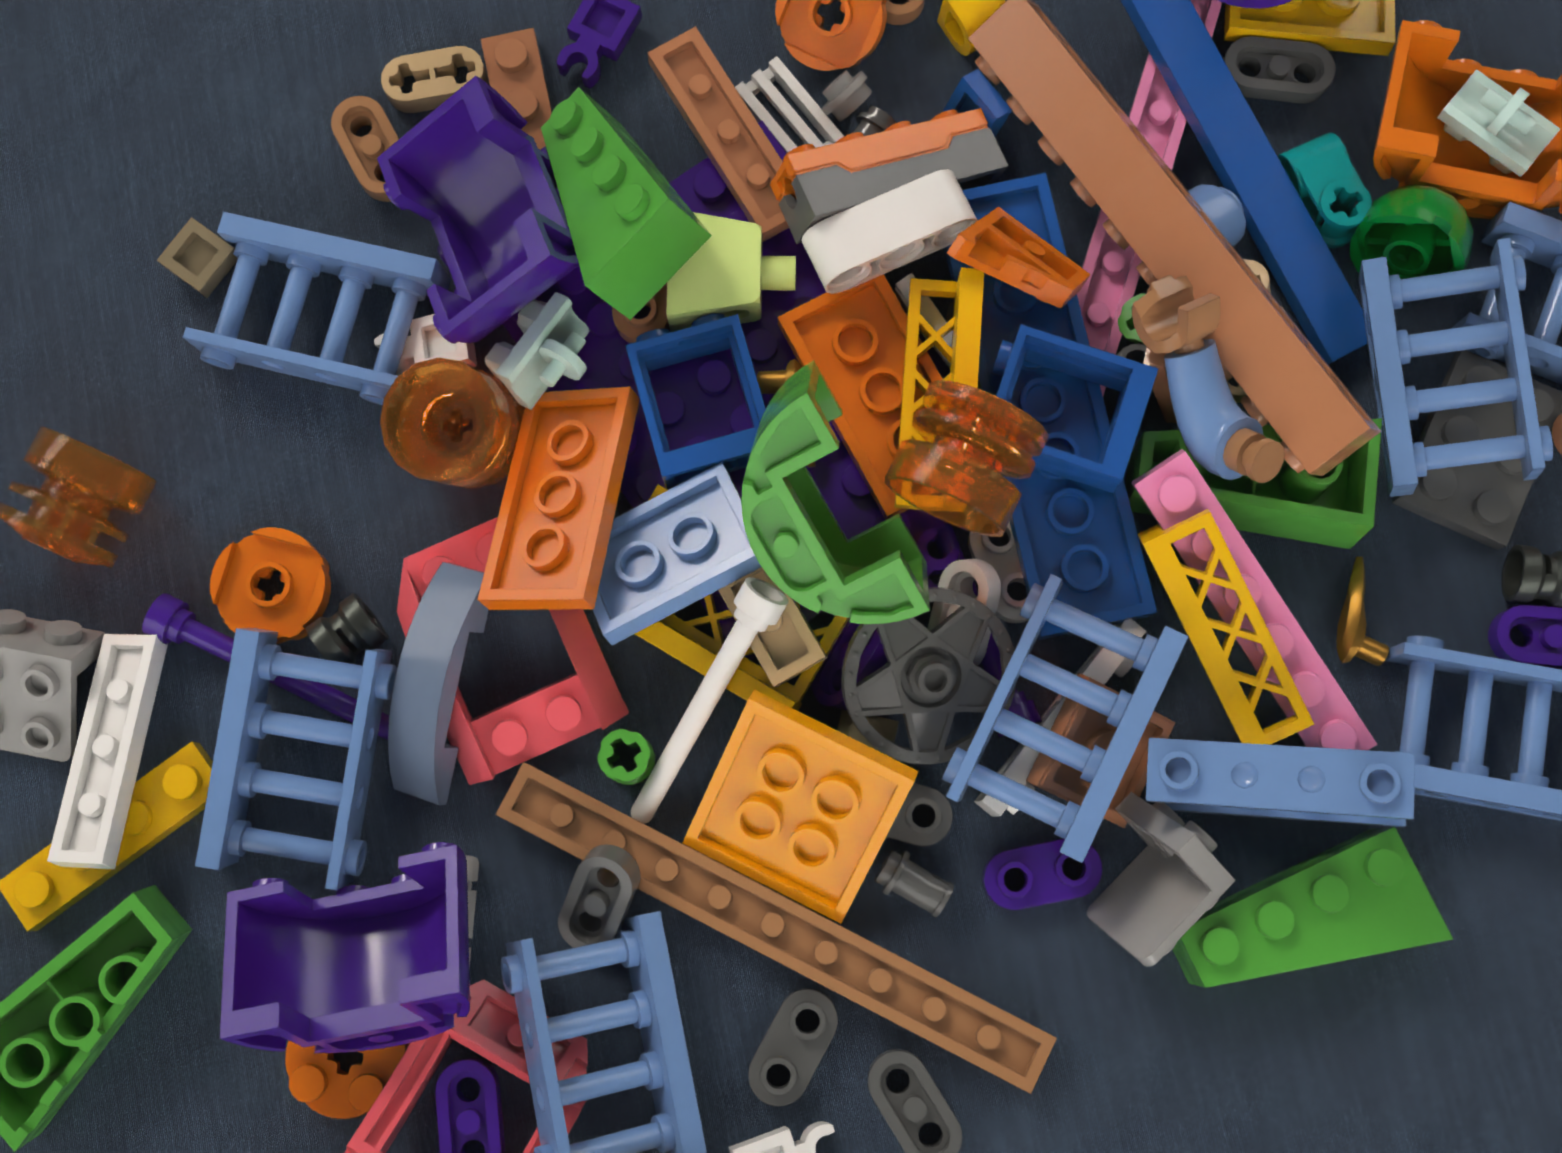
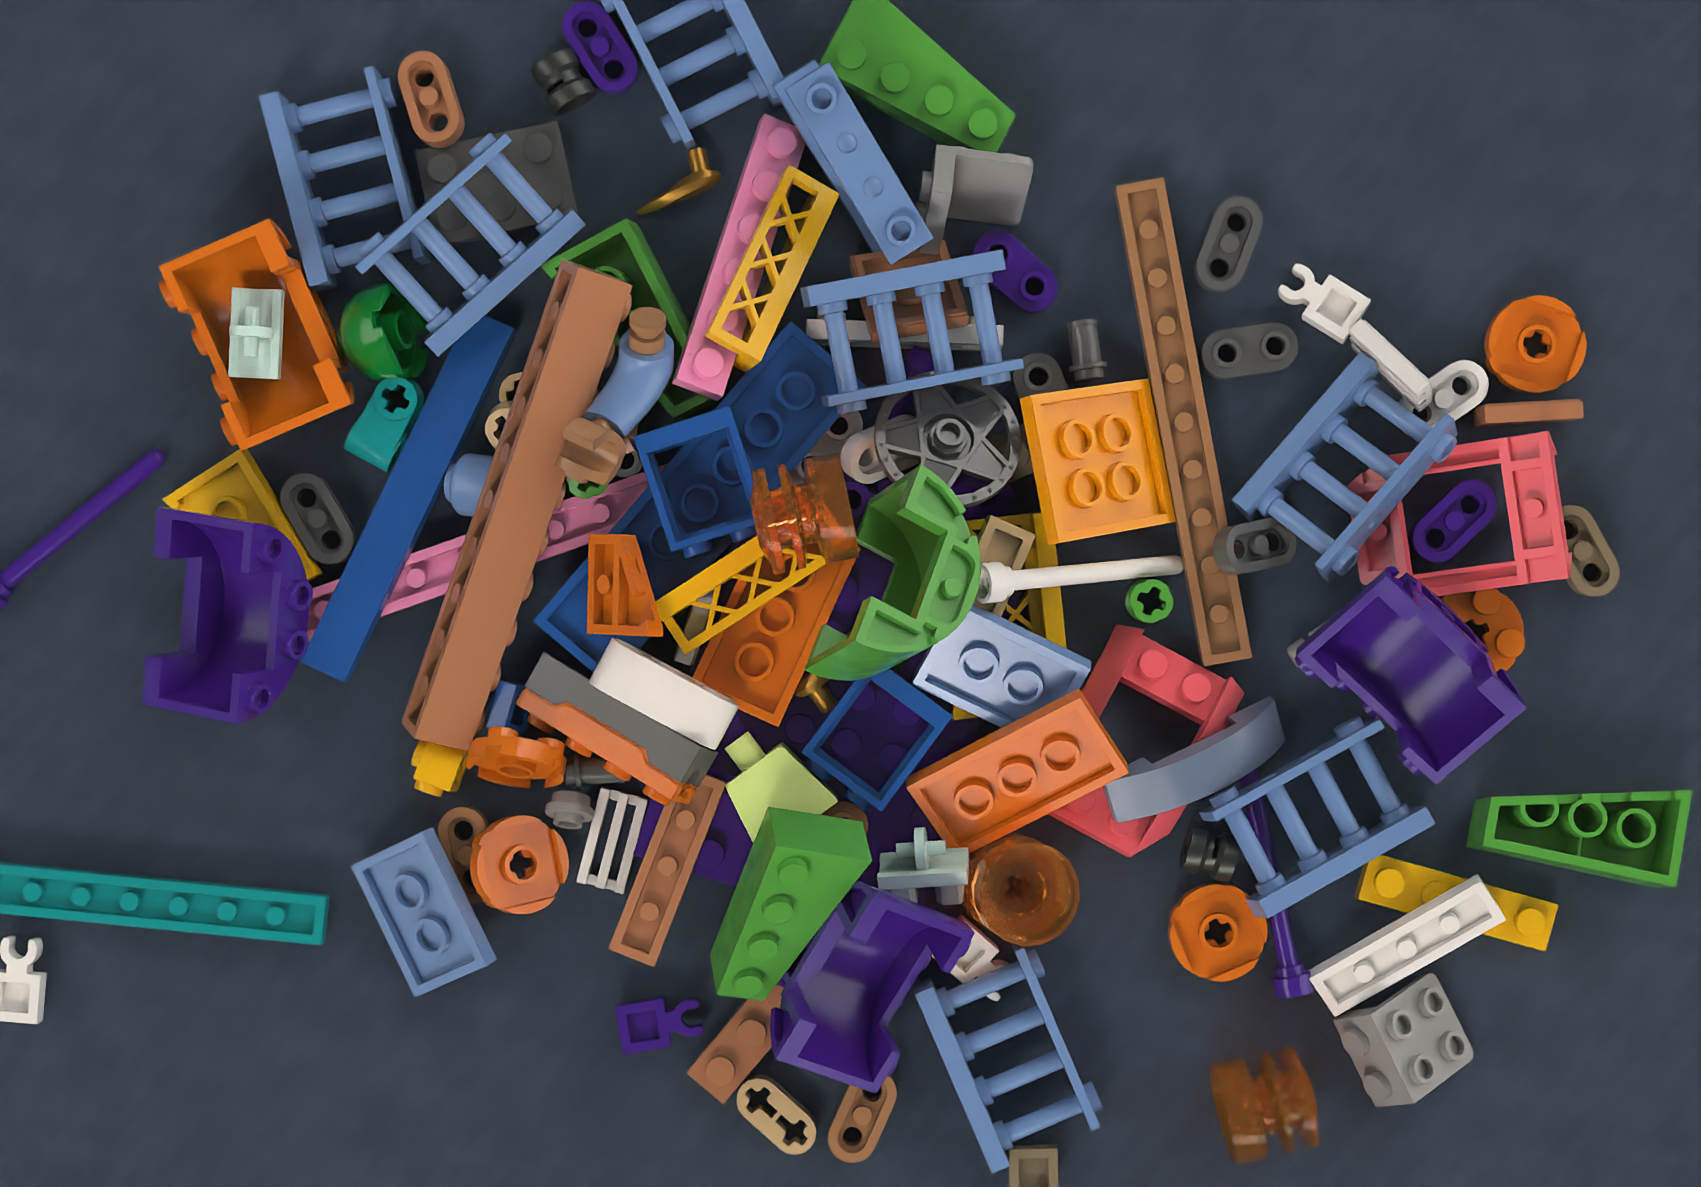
camera: 130 degrees left, 10 degrees up
(927, 71) = (517, 760): none -> orange plate

